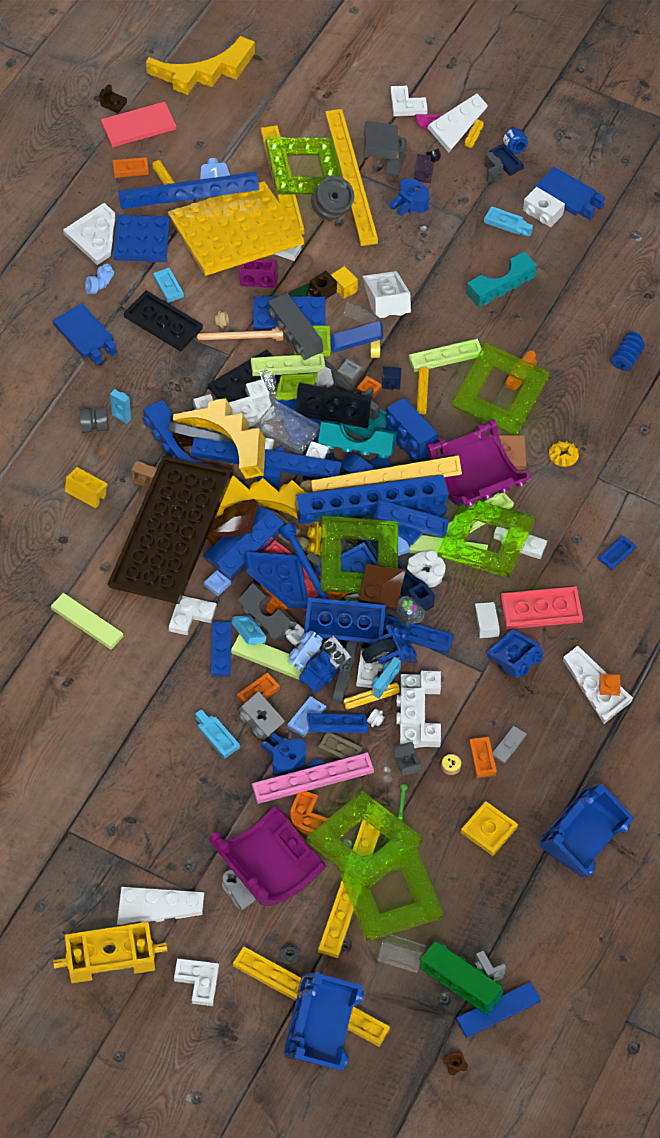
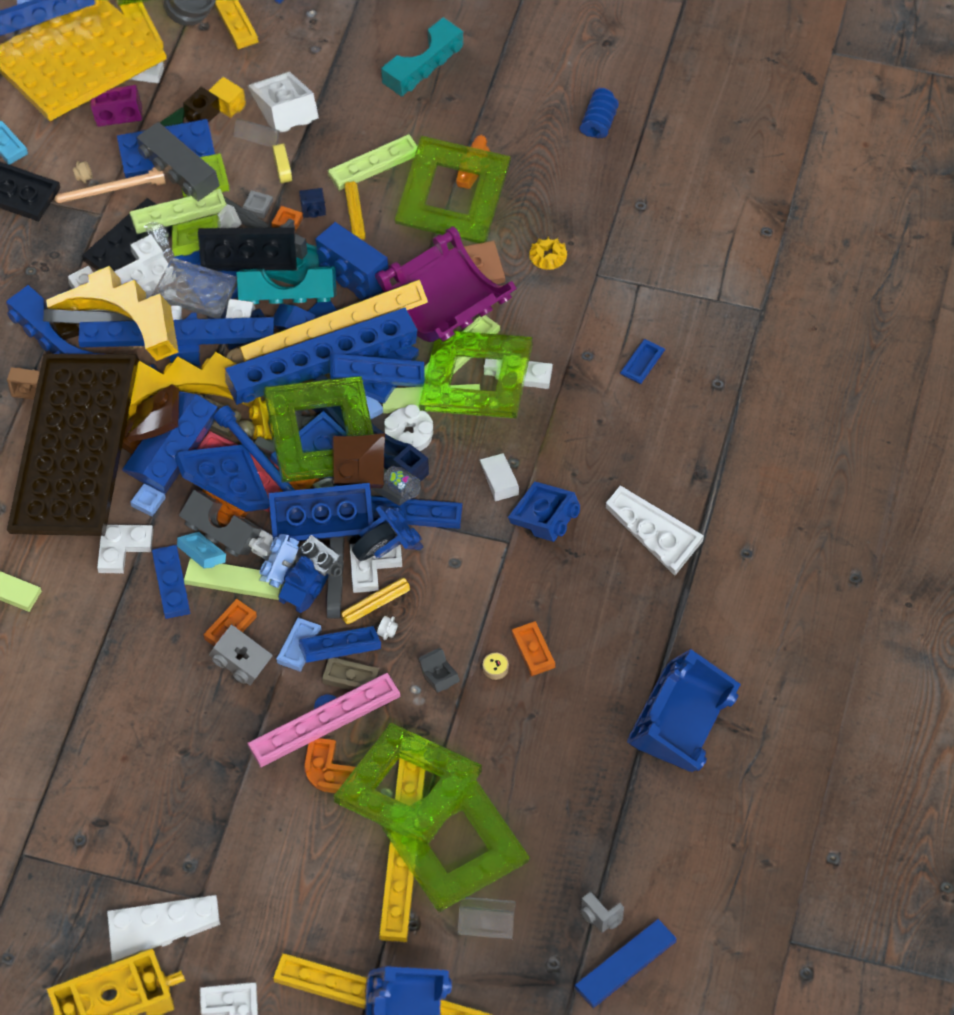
camera: 10 degrees left, 0 degrees up
(216, 734) = (188, 690): medium azure hinge -> none
(237, 891) = (263, 885): light grey piece -> none
(270, 858) = (293, 833): magenta hinge -> none
(285, 754) = (285, 698): blue hinge -> none
(290, 960) = (344, 958): dark grey plate -> none
(356, 336) = (257, 160): blue tile -> none
(389, 671) = (392, 566): medium azure plate -> none
(403, 787) = (442, 707): bright green hinge -> none
(413, 709) = (431, 605): white bracket -> none
(461, 977) = (570, 932): green brick -> none
(489, 828) = (562, 736): yellow plate -> none
(509, 744) = (562, 626): light grey piece -> none
(541, 607) = (564, 448): coral tile -> none
(610, 684) = (672, 525): orange plate -> none

